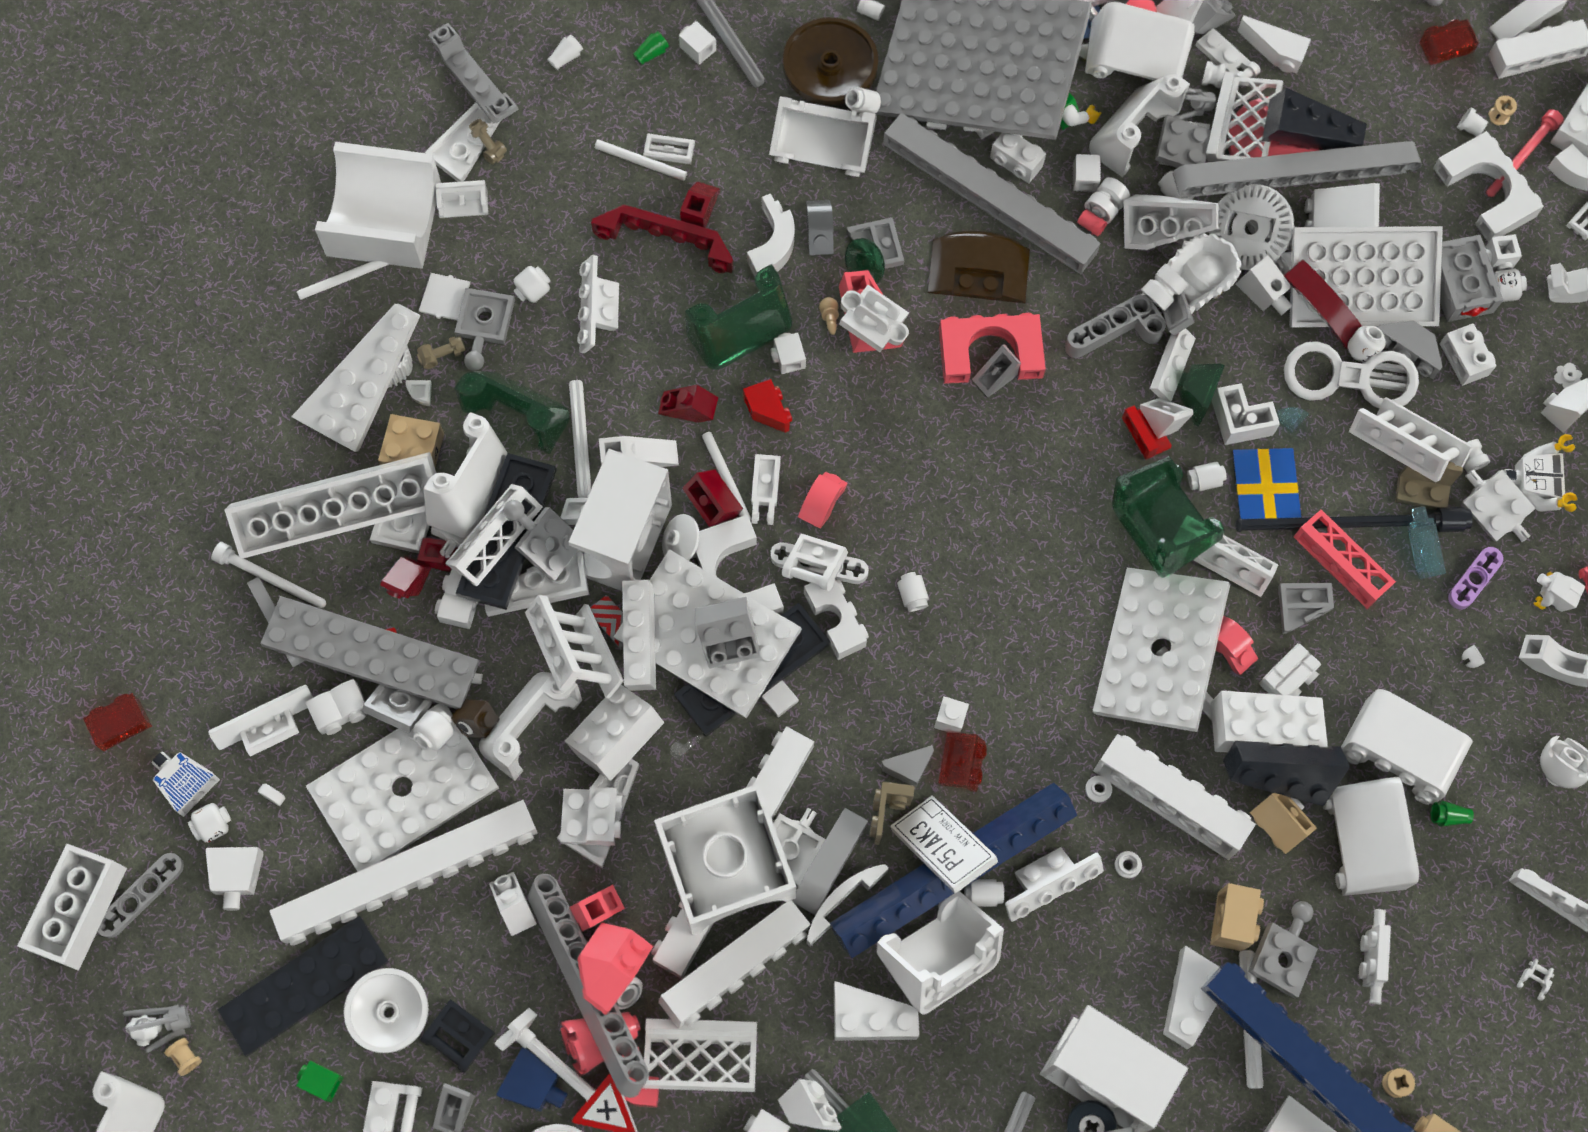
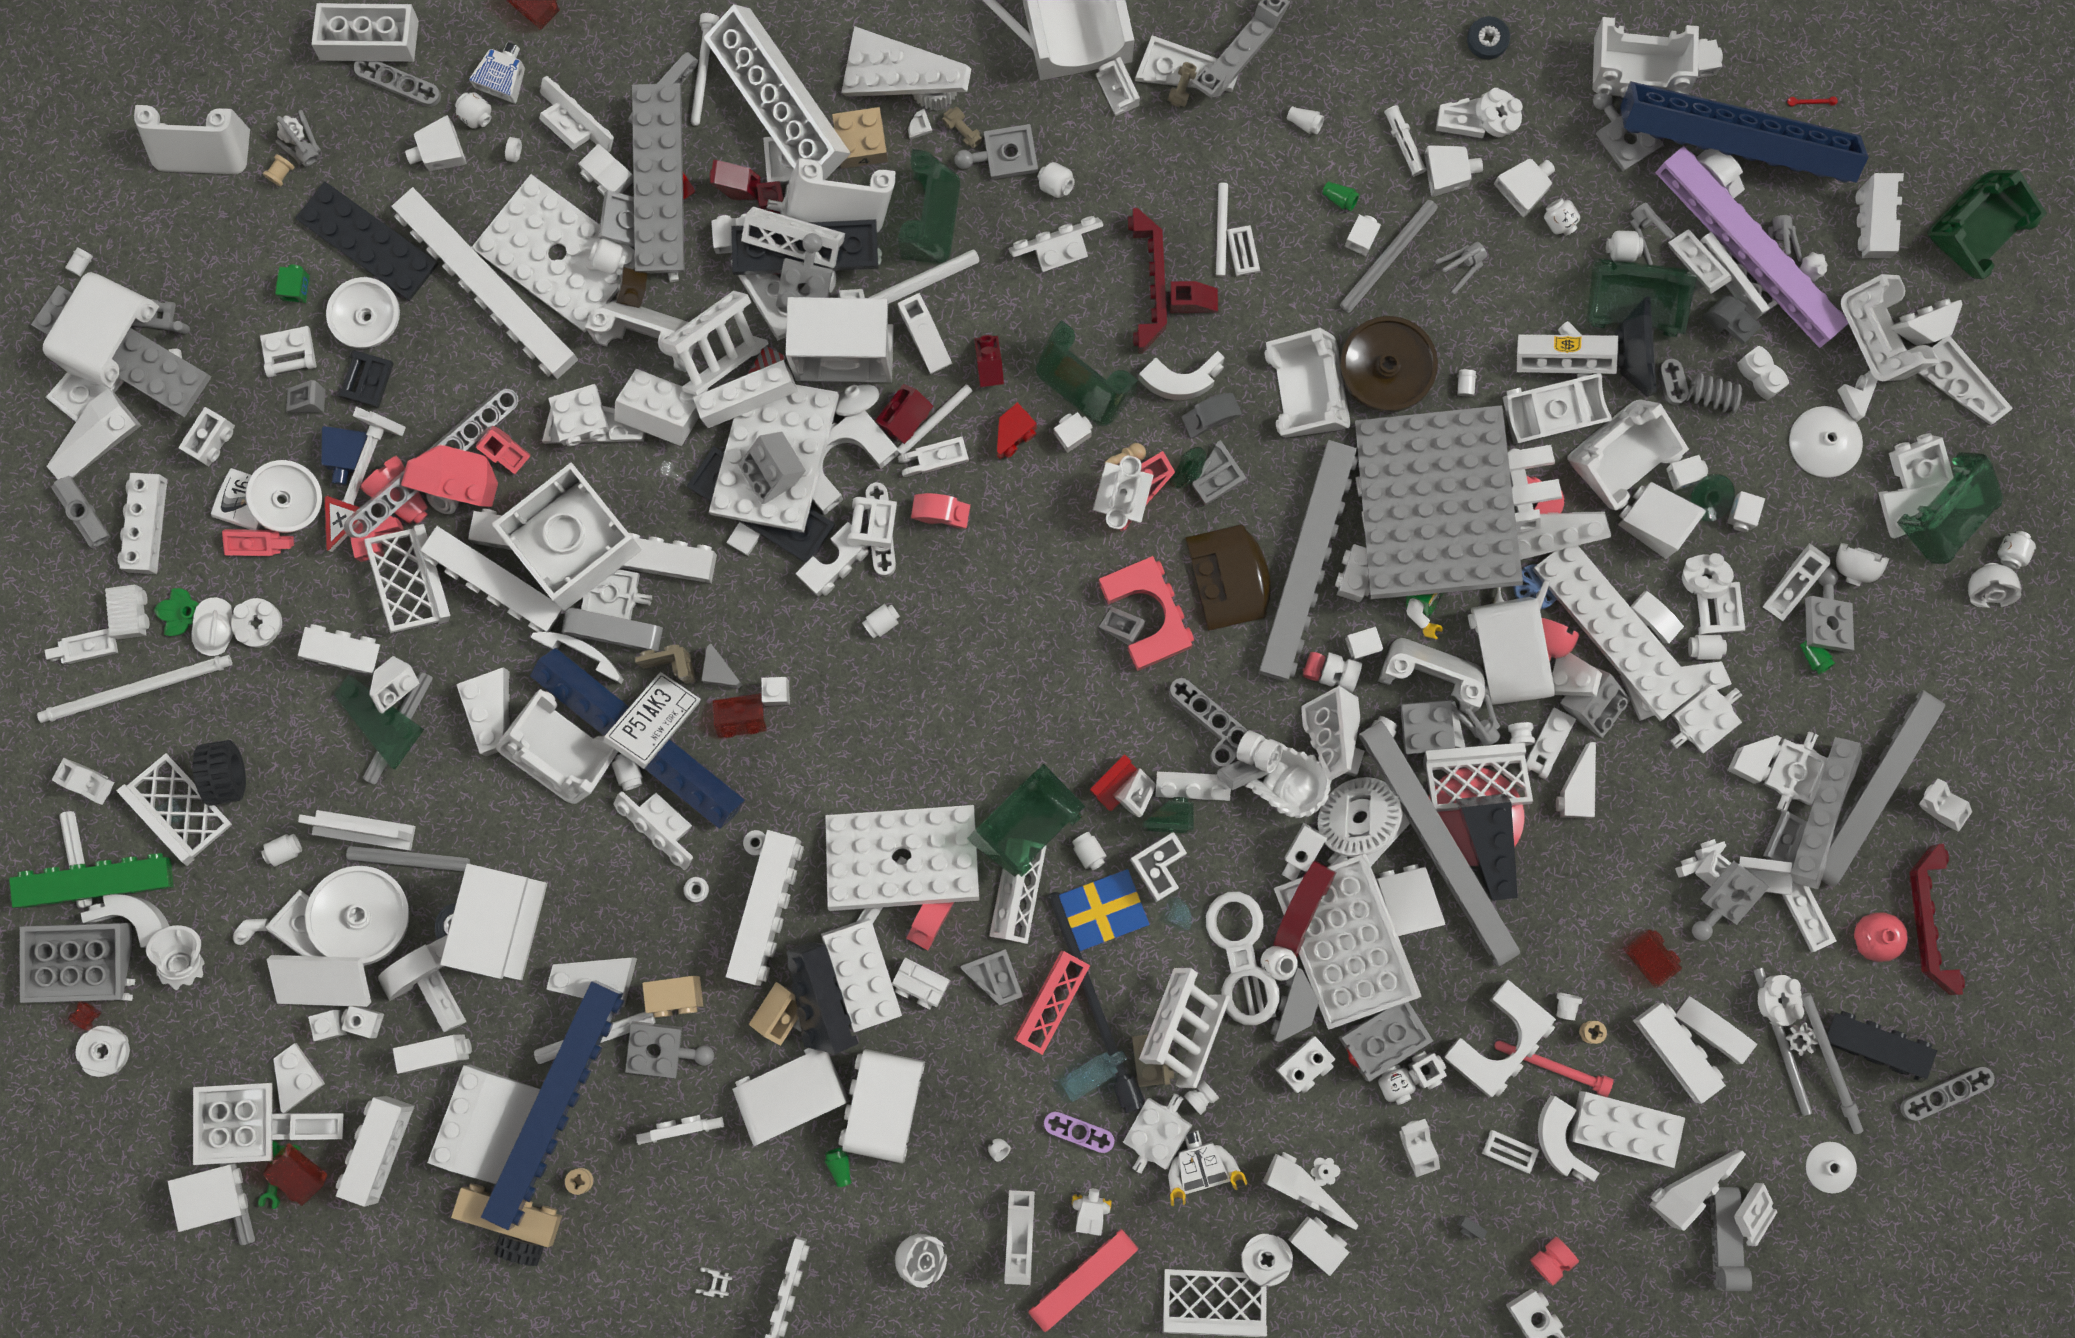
camera: 75 degrees right, 10 degrees up
(443, 296) = (1019, 108): white piece -> none
(512, 903) = (486, 380): white slope -> none
(863, 100) = (1354, 408): white brick -> none

